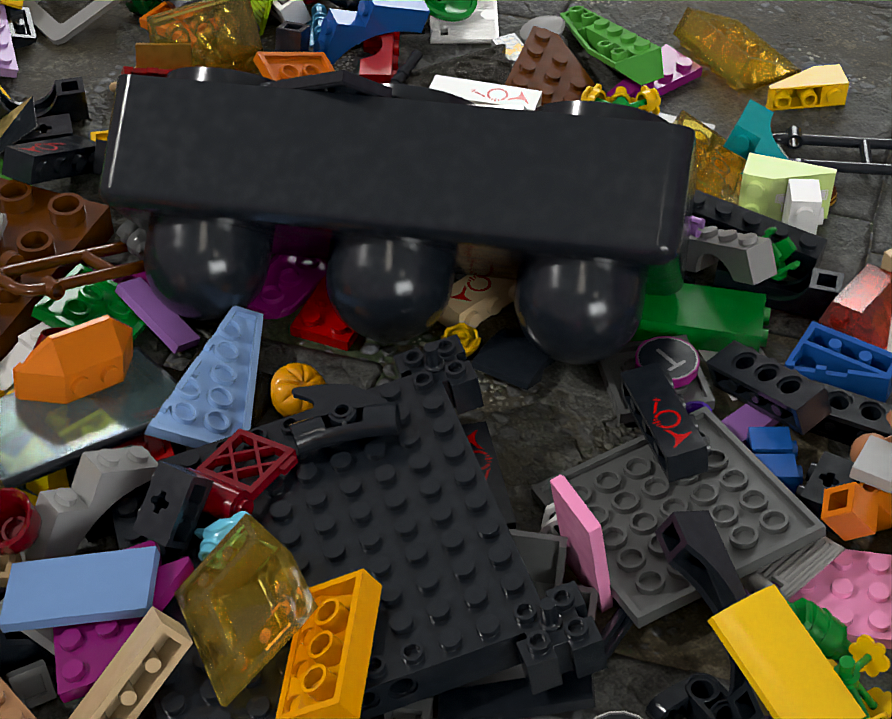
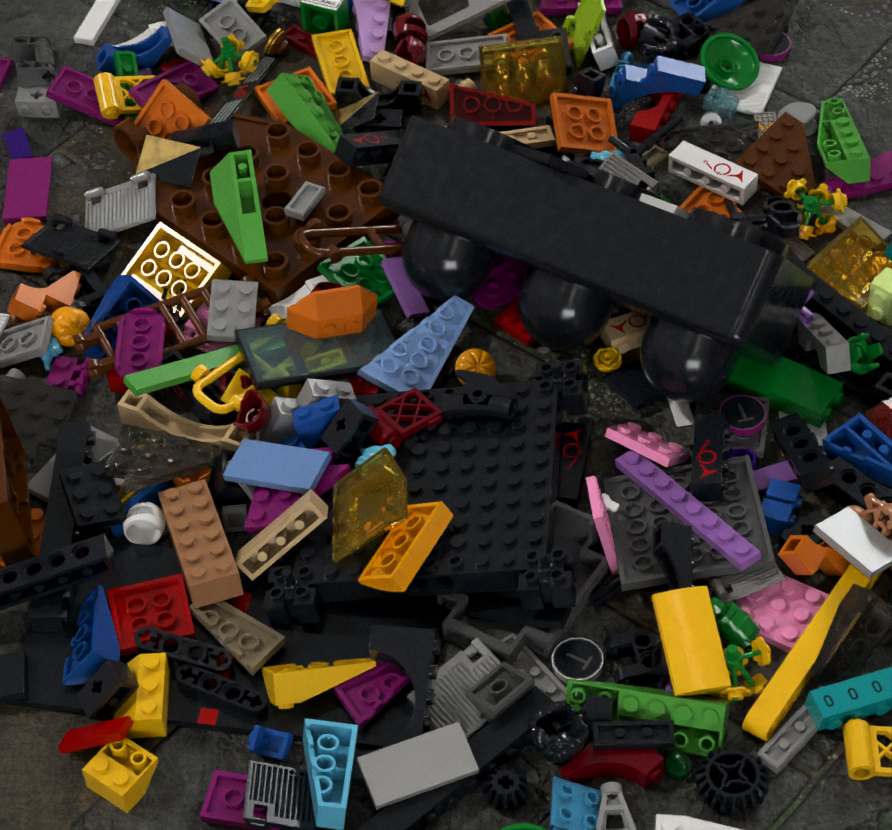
camera: 25 degrees right, 5 degrees up
(35, 77) = (391, 69): none -> tan brick
(41, 31) = (409, 24): none -> dark red helmet
(50, 56) = (411, 49): none -> dark red hair
(108, 47) = (458, 55): none -> light grey tile
(110, 512) = (312, 422): none -> blue arch
(163, 55) = (484, 79): pearl gold tile -> none
(447, 52) = (710, 116): none -> light grey tile
(451, 34) = (721, 102): none -> clear light blue brick
(568, 427) = (647, 444): none -> bright pink plate
(580, 379) = (681, 413): none -> white sticker
(673, 493) = (688, 510): none -> medium lavender plate

